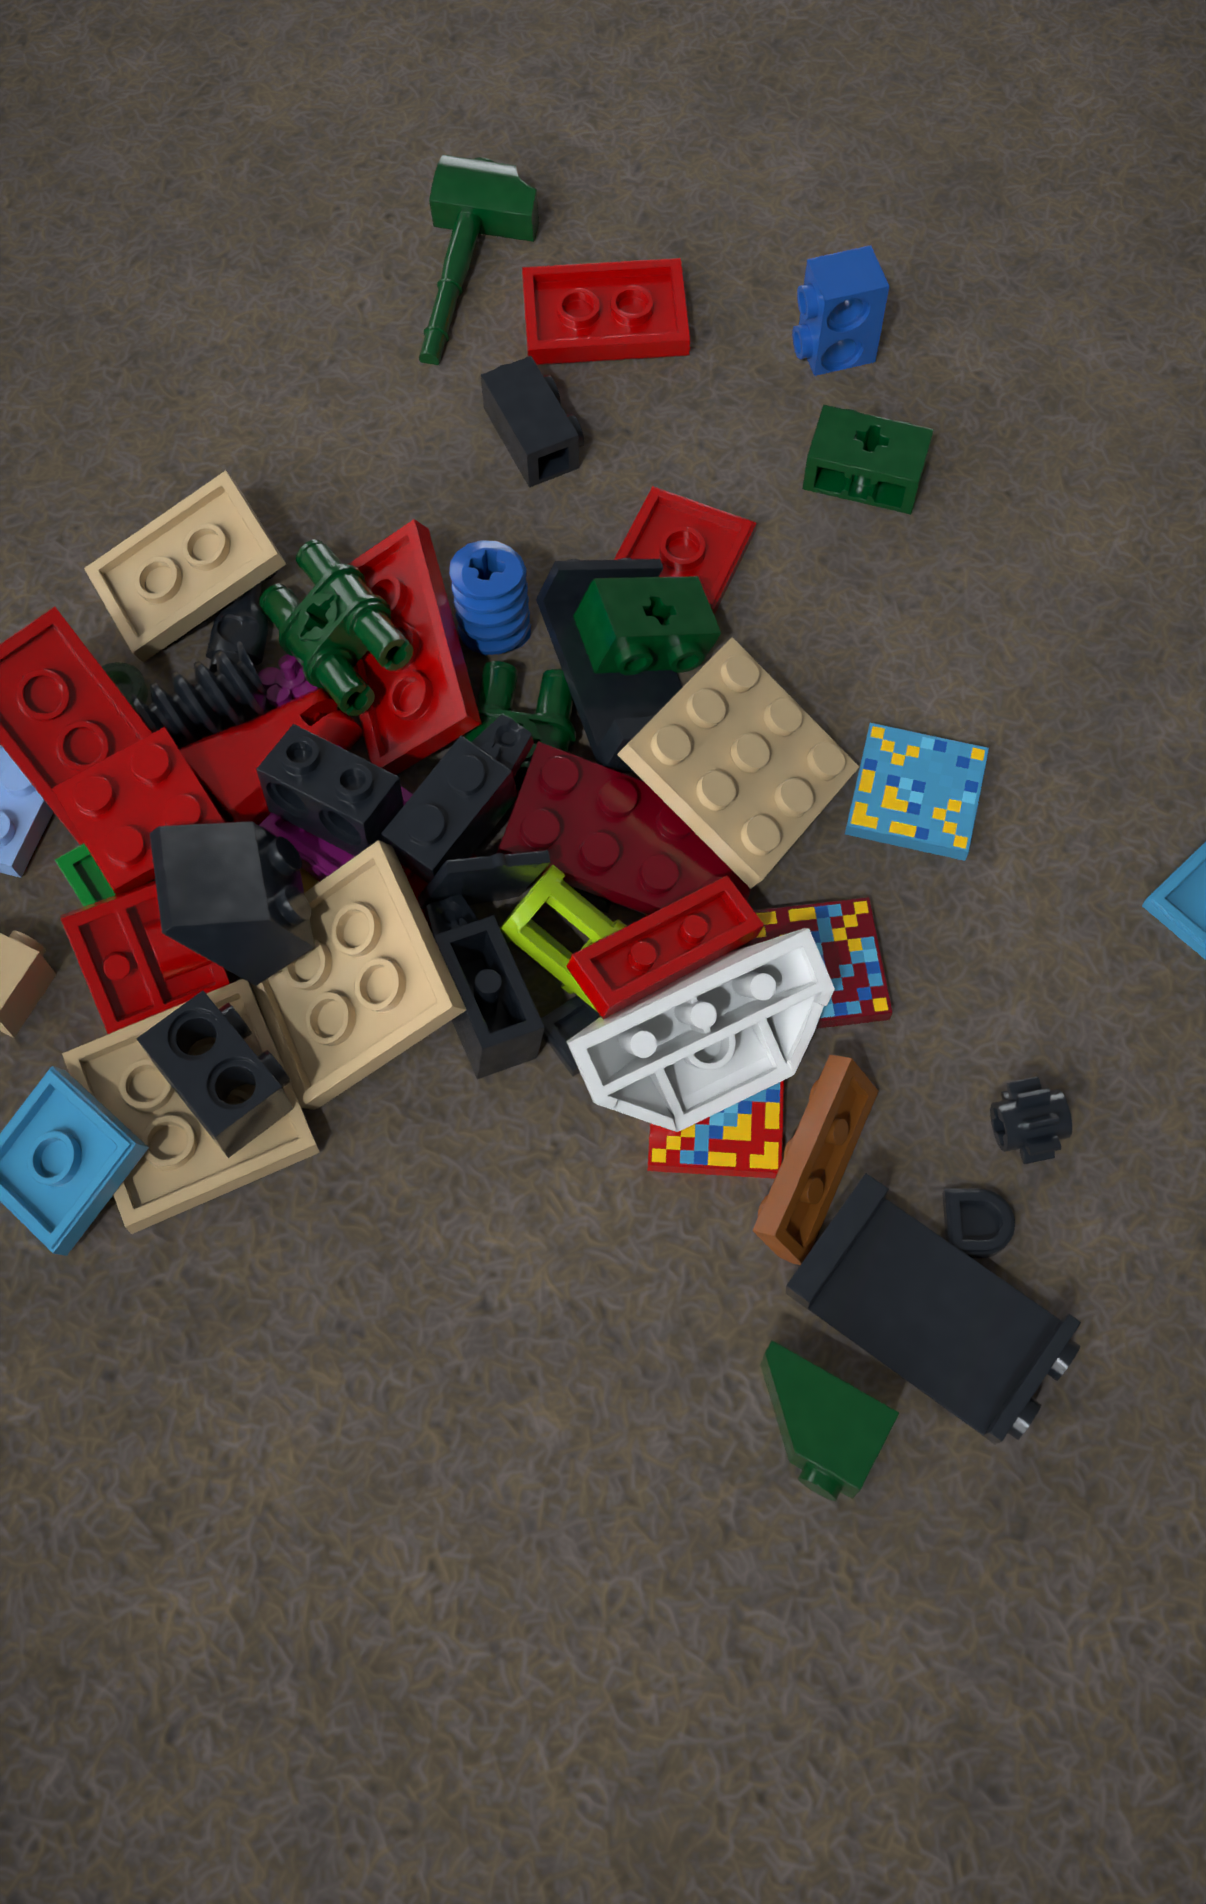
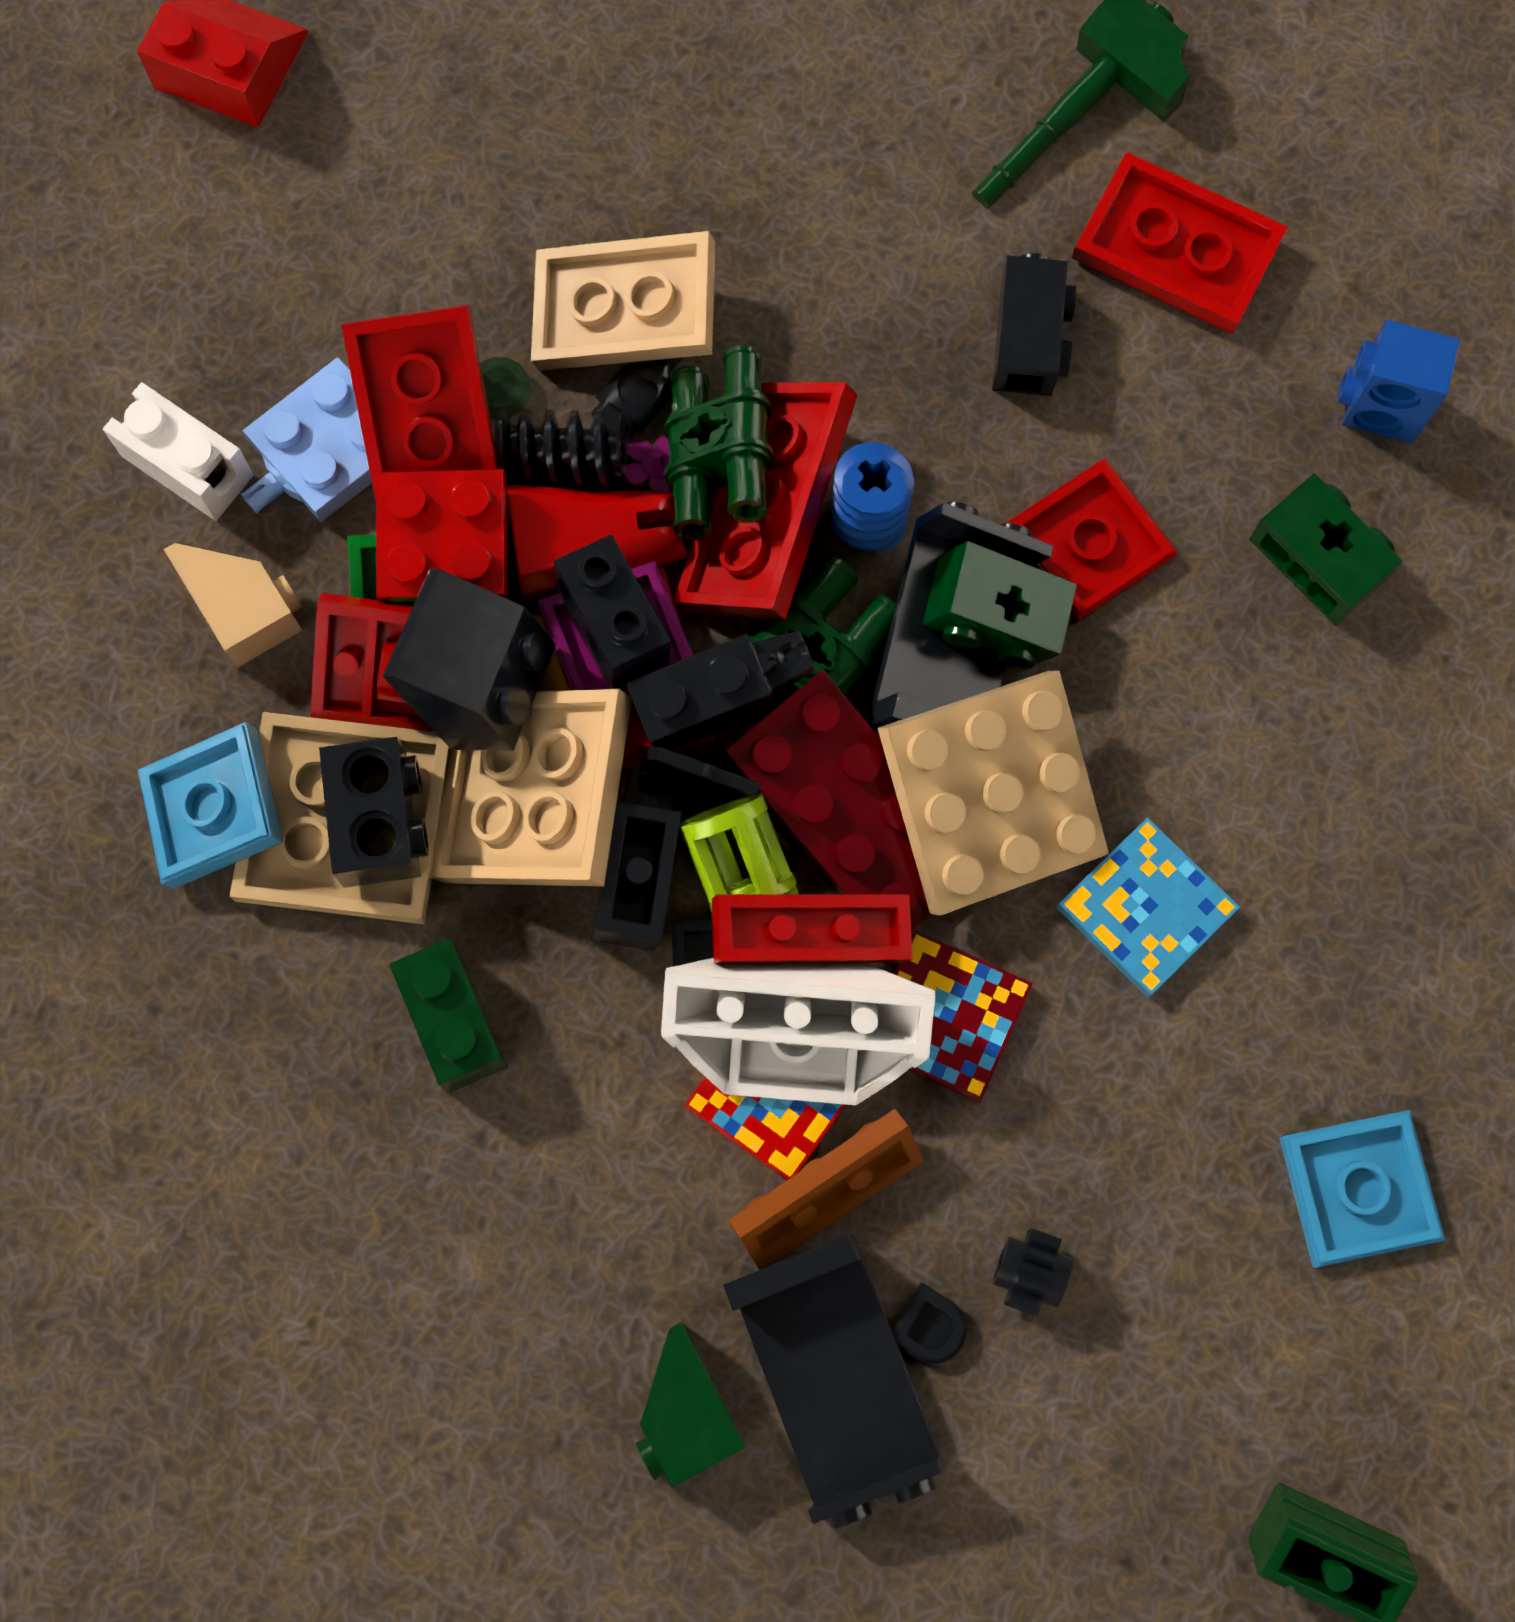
camera: 30 degrees right, 10 degrees up
(393, 1209) = (448, 1015): none -> dark green brick

